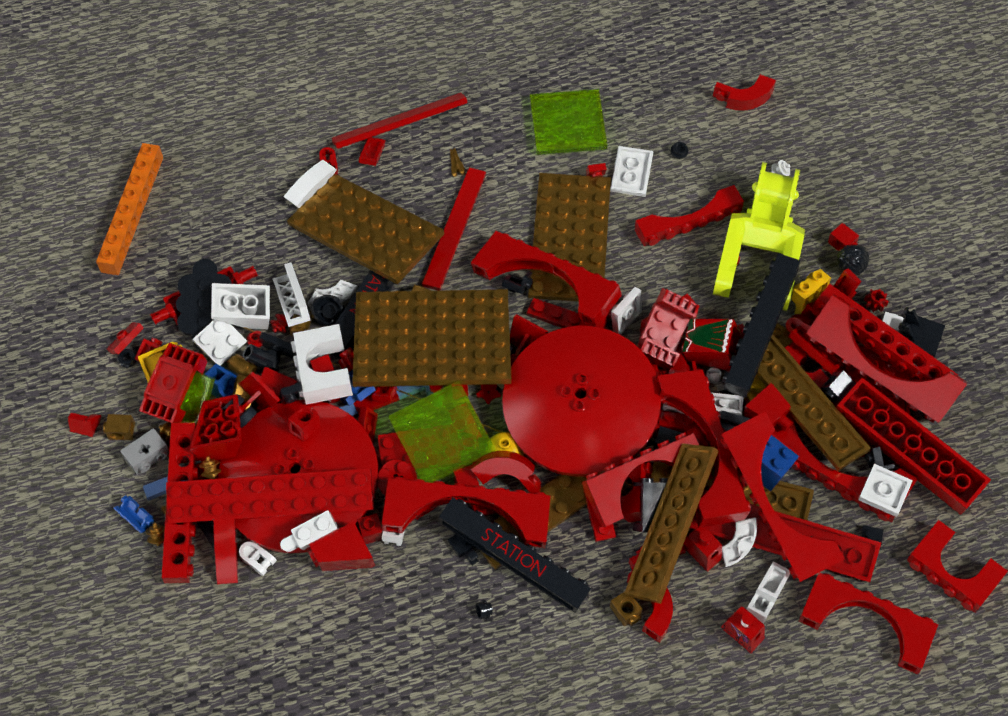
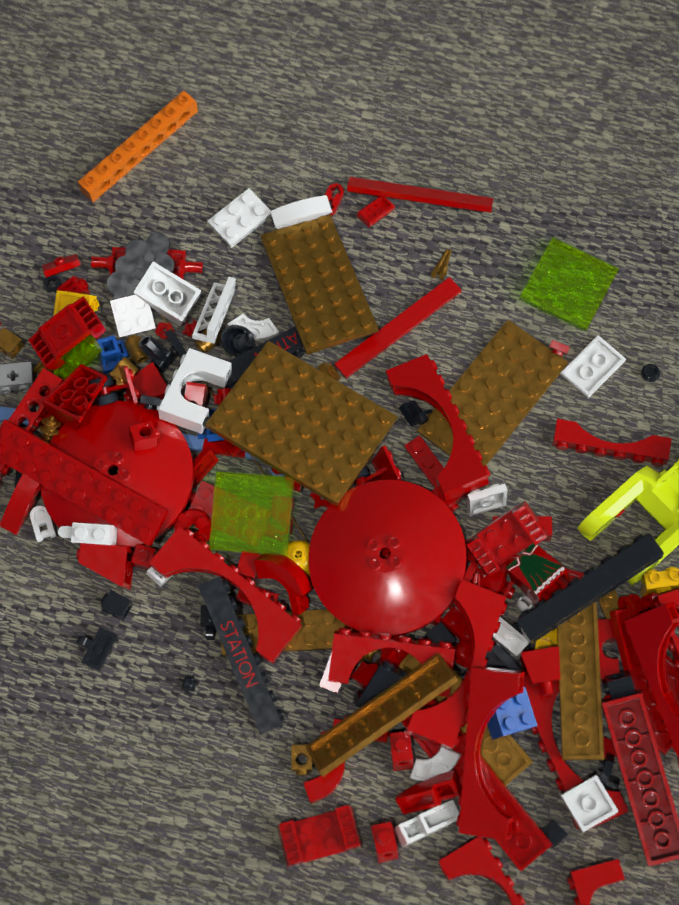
camera: 35 degrees right, 10 degrees up
(259, 217) = (239, 218): none -> white plate
(372, 583) = (116, 605): none -> black brick
(382, 631) = (98, 648): none -> black plate
(687, 662) = (319, 836): none -> red plate
(752, 566) = (429, 793): none -> red slope

